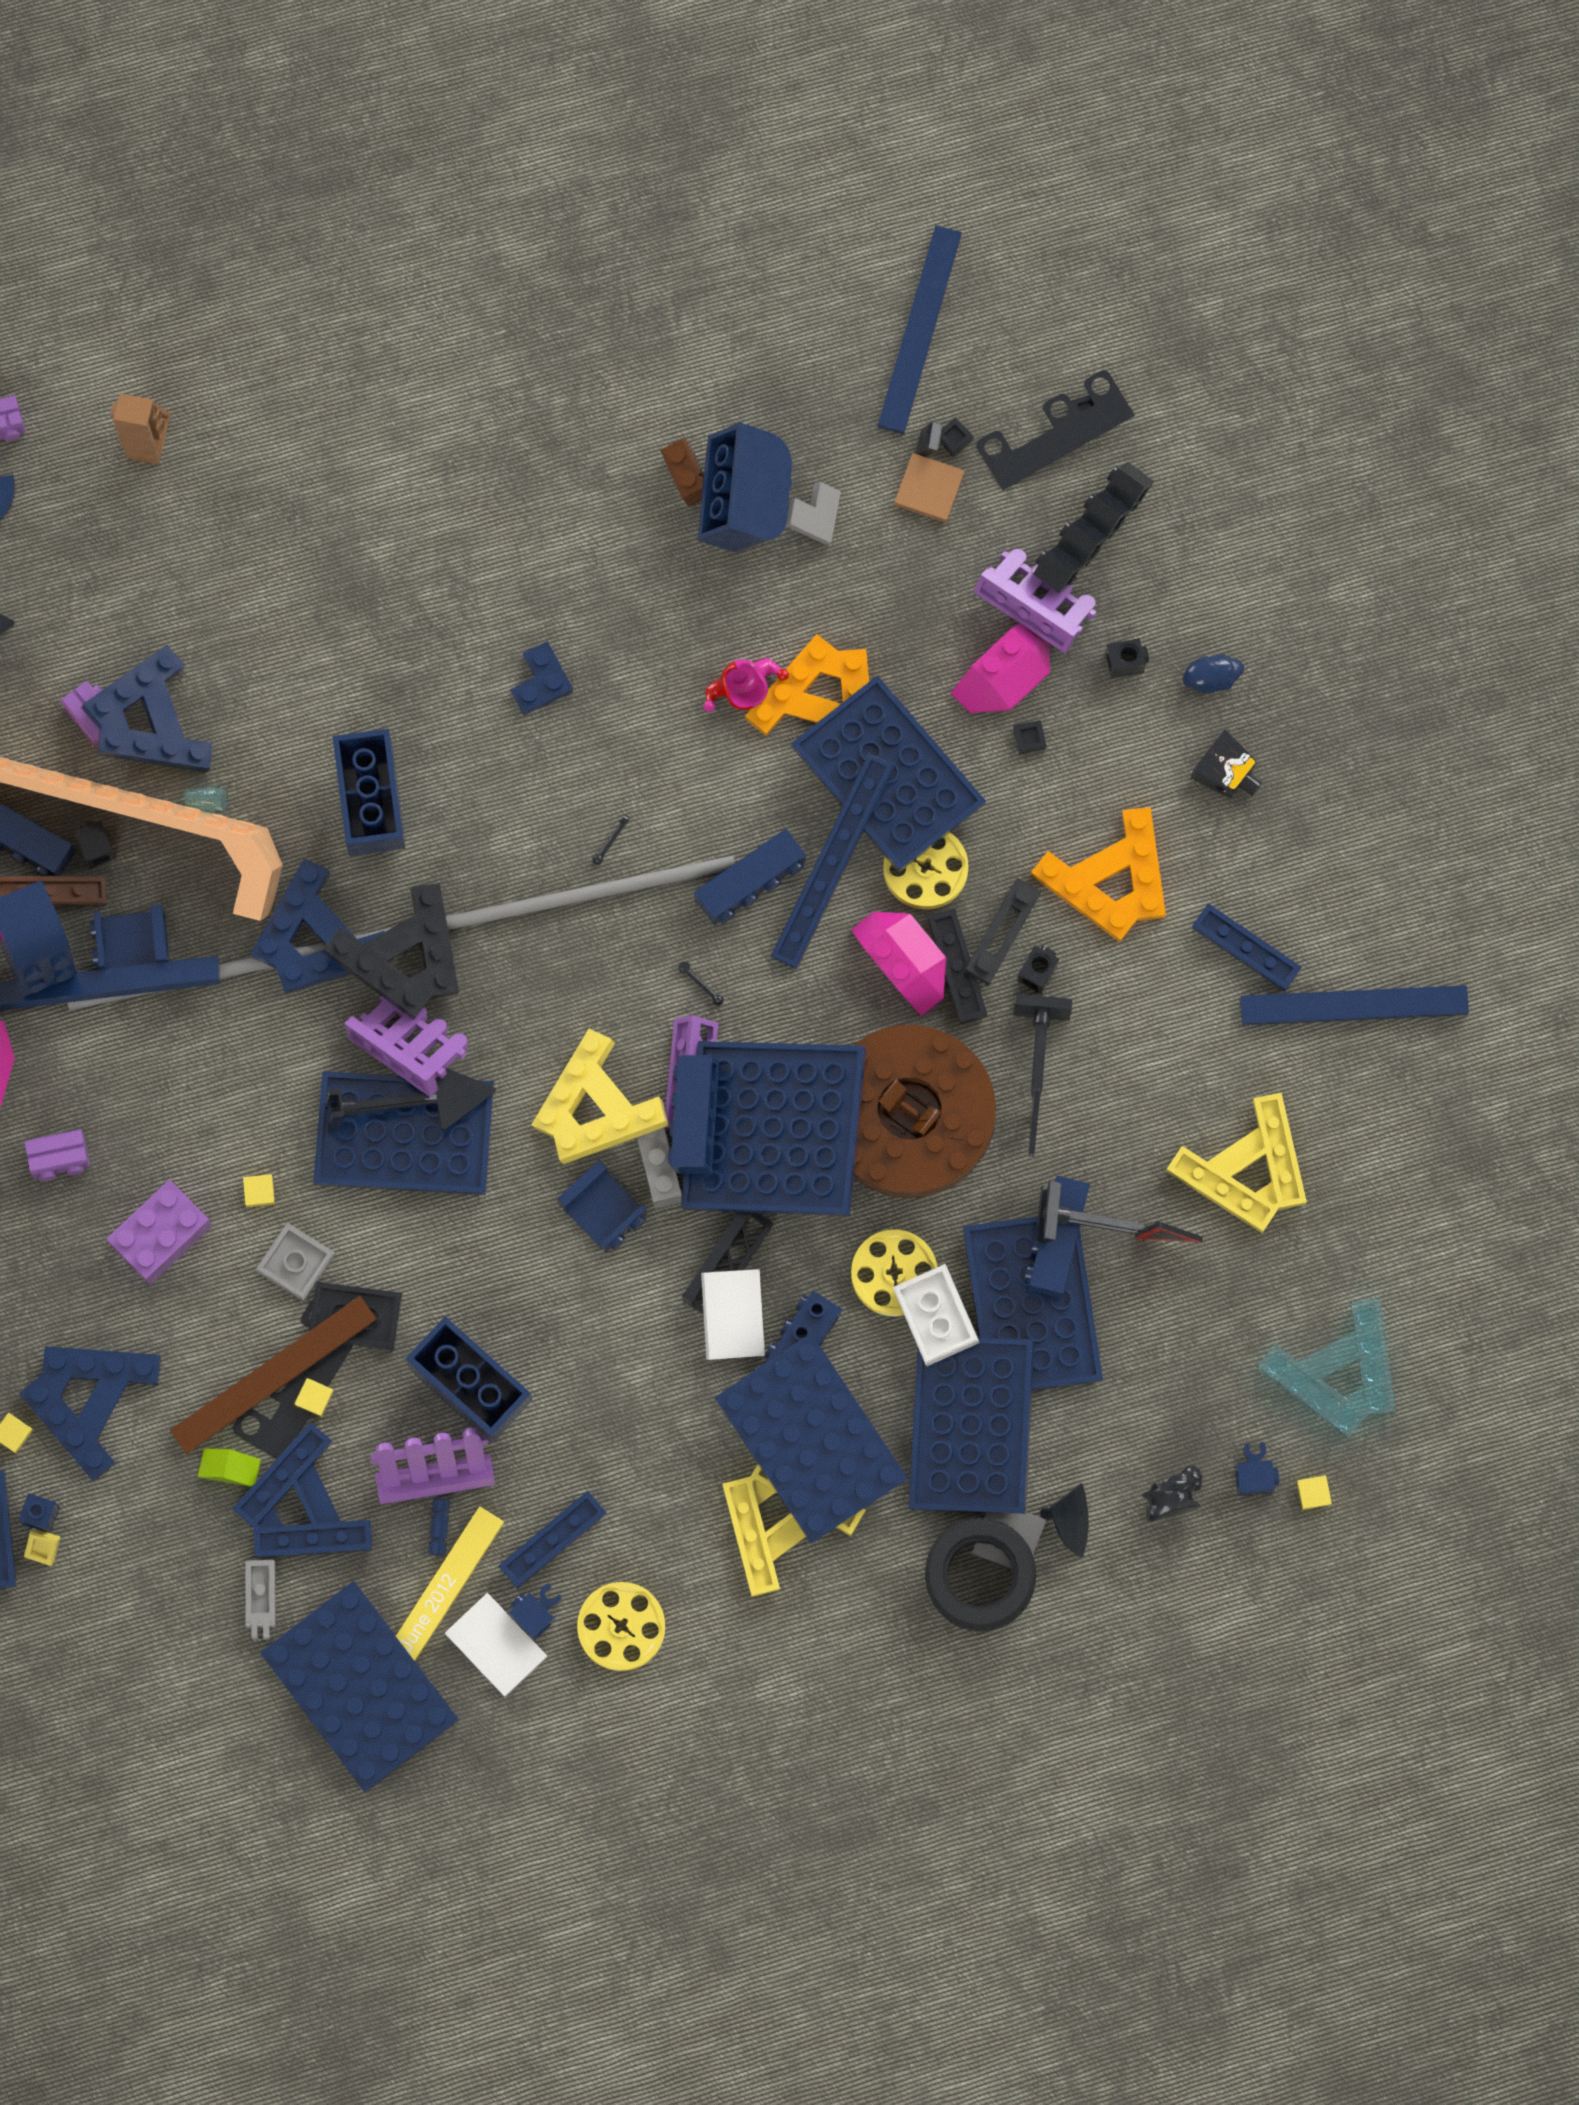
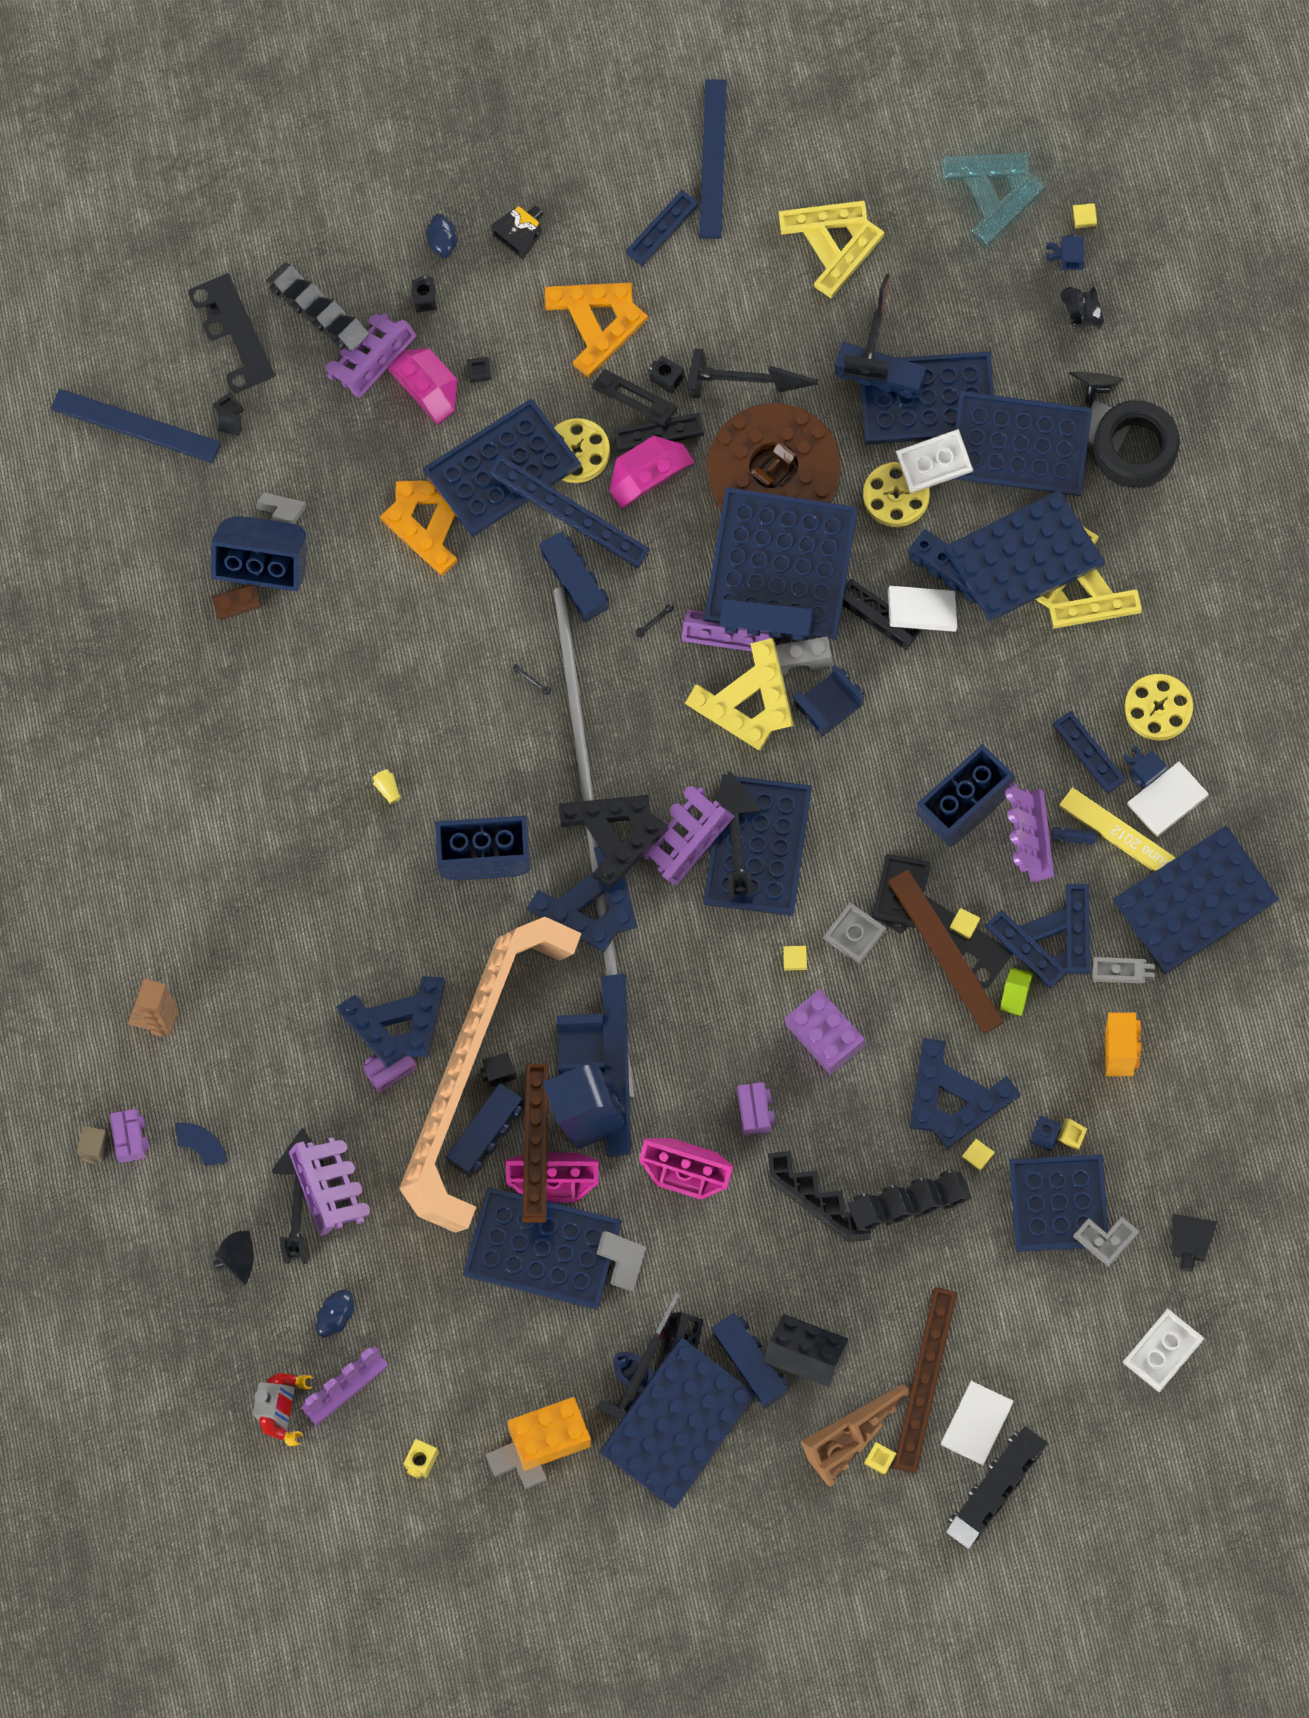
camera: 75 degrees left, 5 degrees down
(149, 1597) = (1122, 1044): none -> light orange brick
(207, 798) = (468, 981): clear light blue cone -> none
(457, 677) = (386, 784): none -> light yellow cone
(548, 682) = (396, 718): dark blue plate -> none
(743, 683) = (416, 570): dark pink piece -> none
(929, 487) = (268, 427): medium nougat tile -> none

